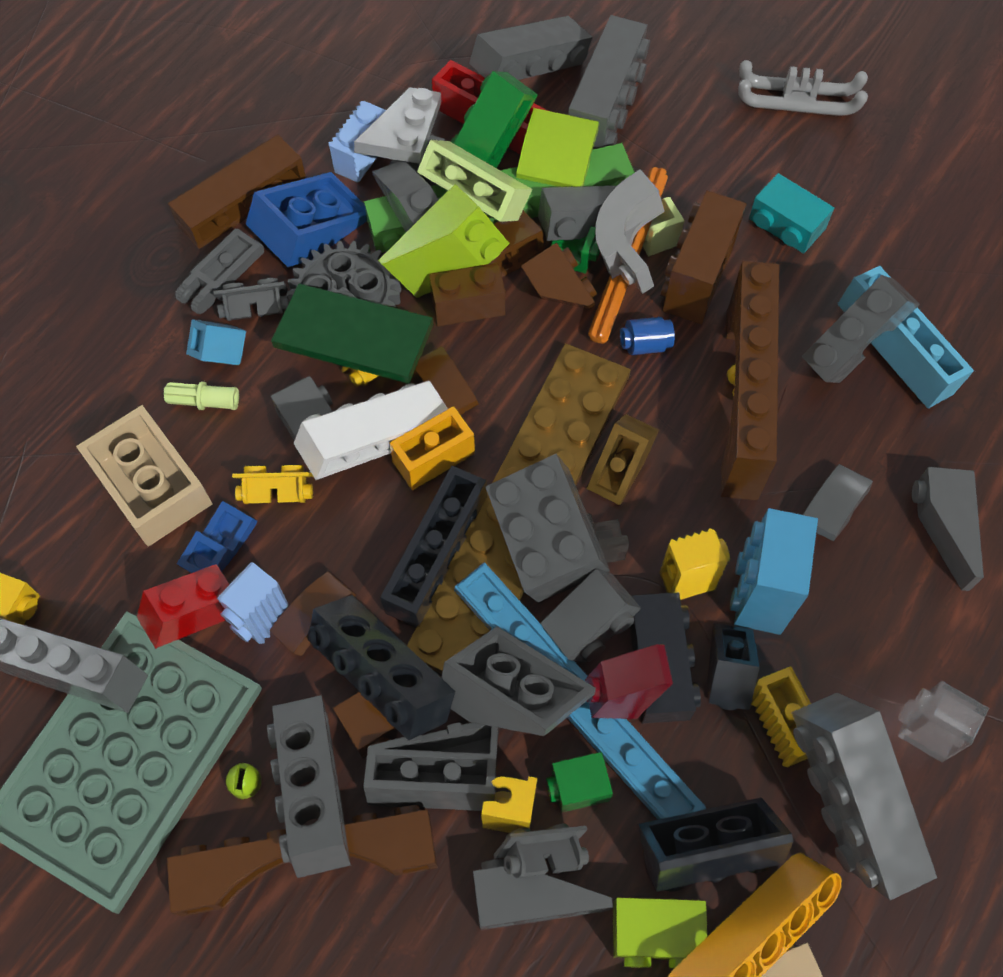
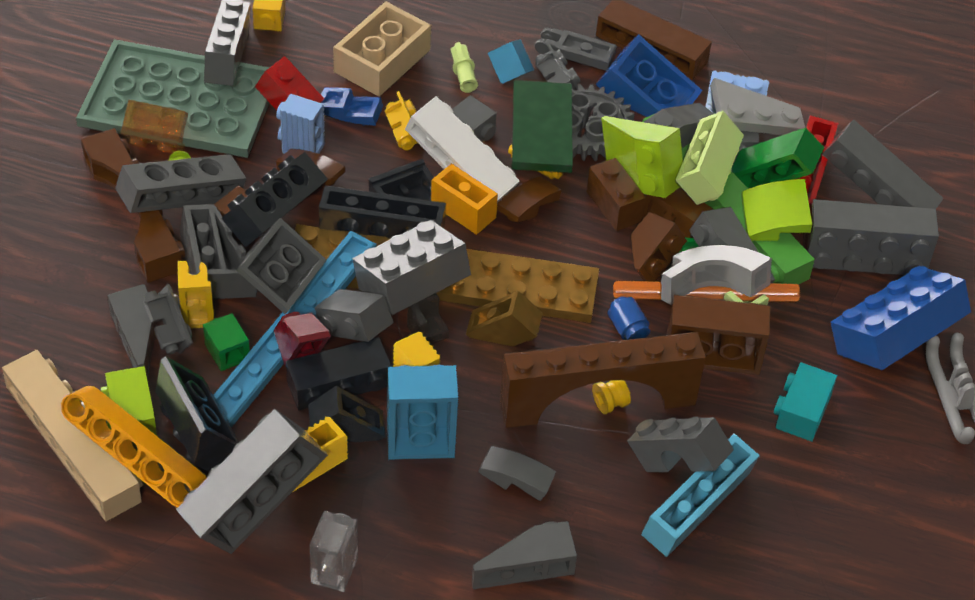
camera: 70 degrees right, 15 degrees down
(181, 799) = (154, 125): none -> clear orange bracket
(386, 513) = (405, 181): none -> black hinge
(716, 98) = (900, 317): none -> blue brick

